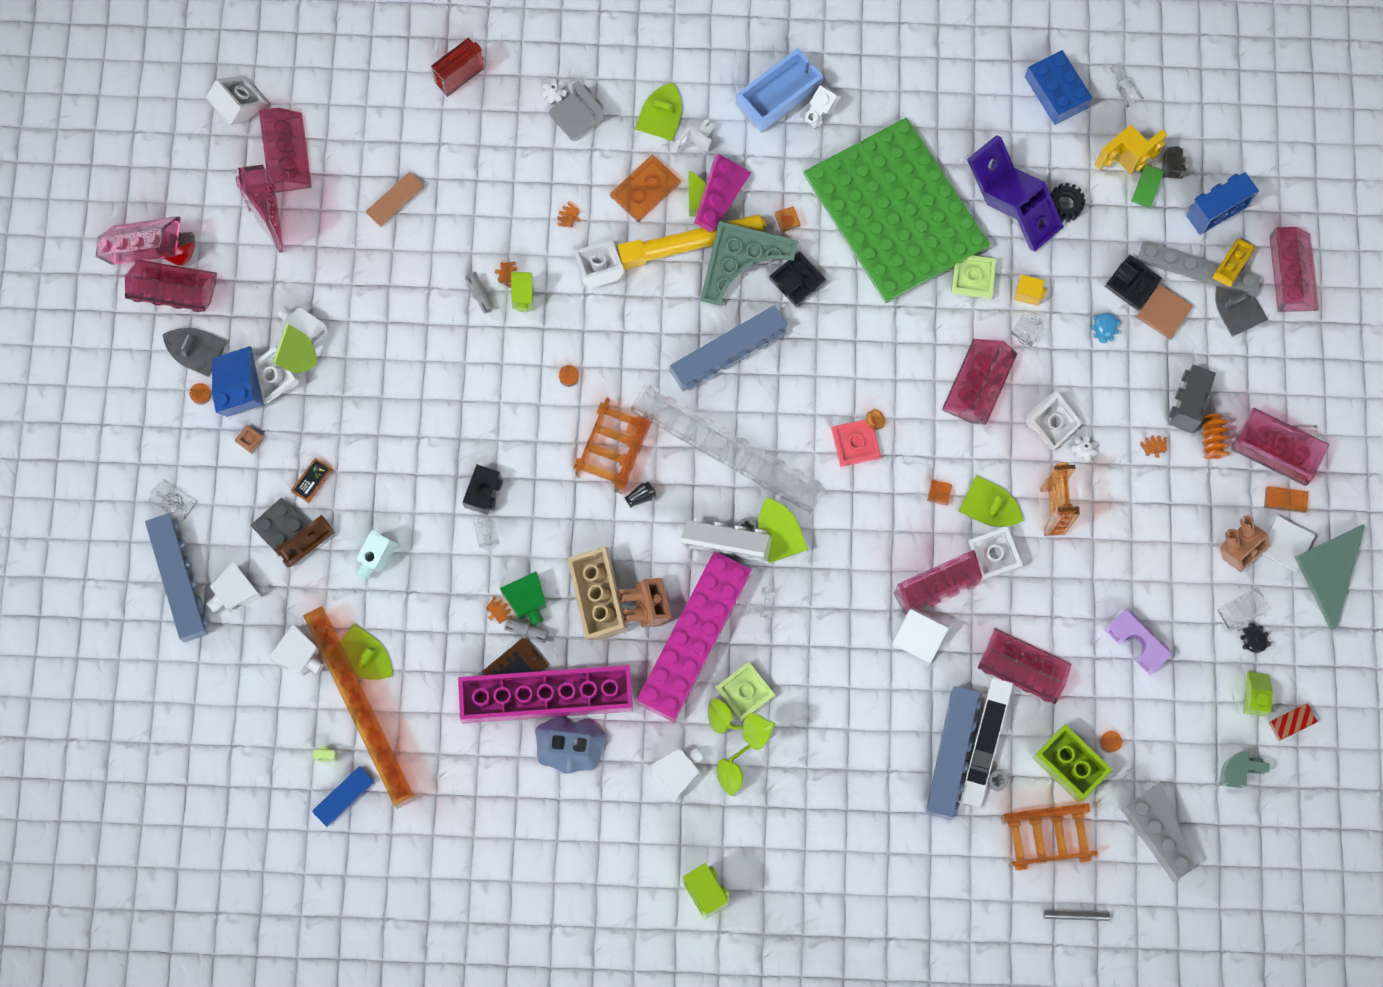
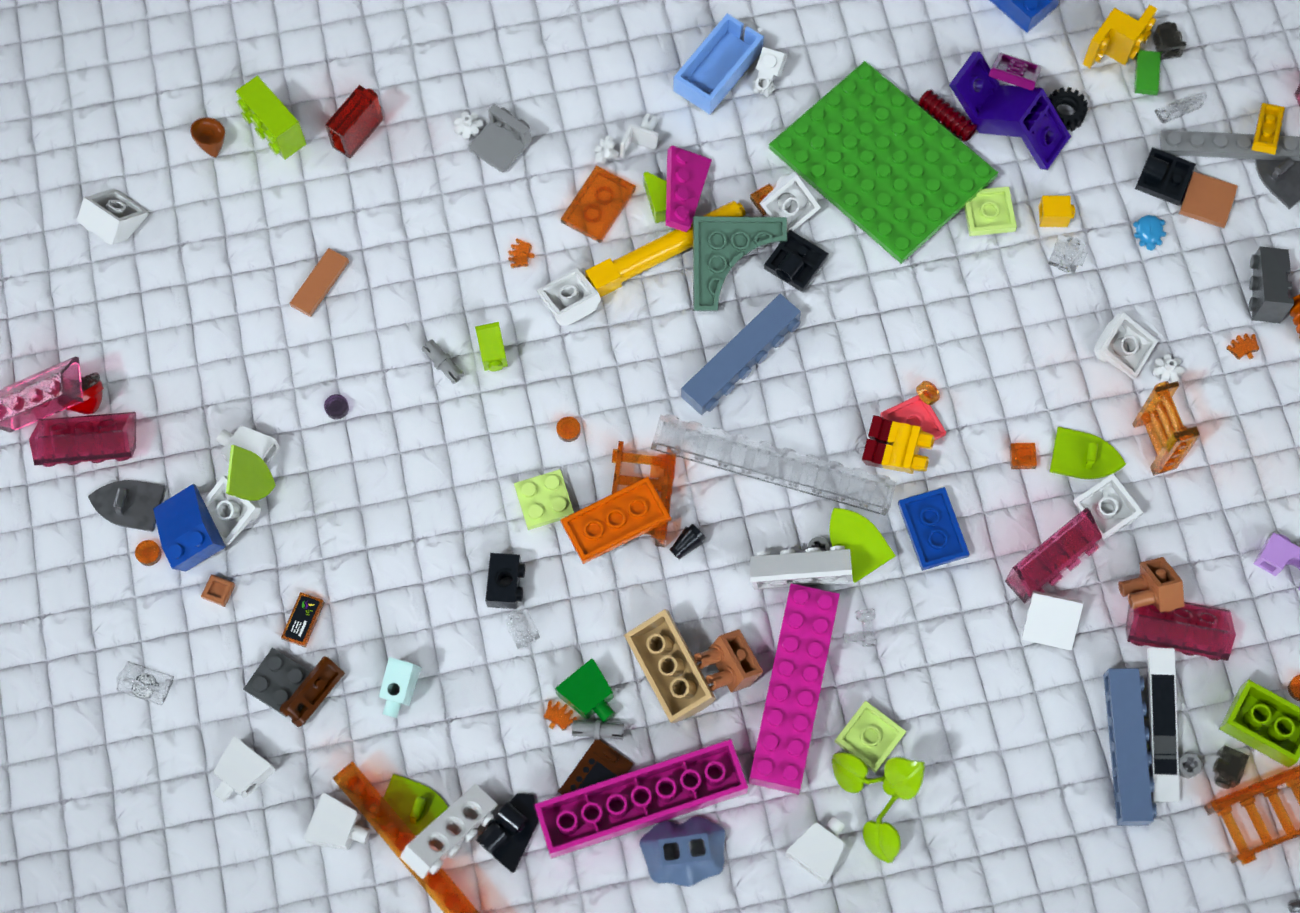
camera: 10 degrees left, 5 degrees down
(176, 577) = (171, 773): sand blue brick -> none
(261, 200) = (167, 317): clear pink slope -> none
(285, 149) = (181, 257): clear pink slope -> none
(333, 48) = (208, 135): none -> dark orange piece
(382, 309) = (336, 406): none -> clear purple tile
(387, 46) = (270, 118): none -> lime brick
(410, 663) = (423, 858): none -> white brick
(435, 693) = (511, 831): none -> black panel
(505, 272) = (467, 333): clear orange piece -> none
(533, 430) = (543, 499): none -> yellowish green plate
(585, 462) = (615, 520): none -> orange tile
(661, 113) = (592, 118): lime shield -> none
(663, 143) = (605, 150): none -> white plant
(806, 227) = (790, 200): none -> white slope
(842, 460) = (896, 446): none -> yellow hips
(846, 534) = (933, 528): none -> blue plate
(963, 183) = (947, 115): none -> dark red piece
(980, 380) = (1031, 322): clear pink slope -> none
(1012, 629) = (1156, 585): none -> nougat brick
(1029, 160) = (1015, 71): none -> magenta tile
(1029, 790) = (1229, 767): none -> clear smoke brick
(1166, 224) = (1180, 107): none -> clear slope
(1222, 202) = (1235, 68): blue brick -> none

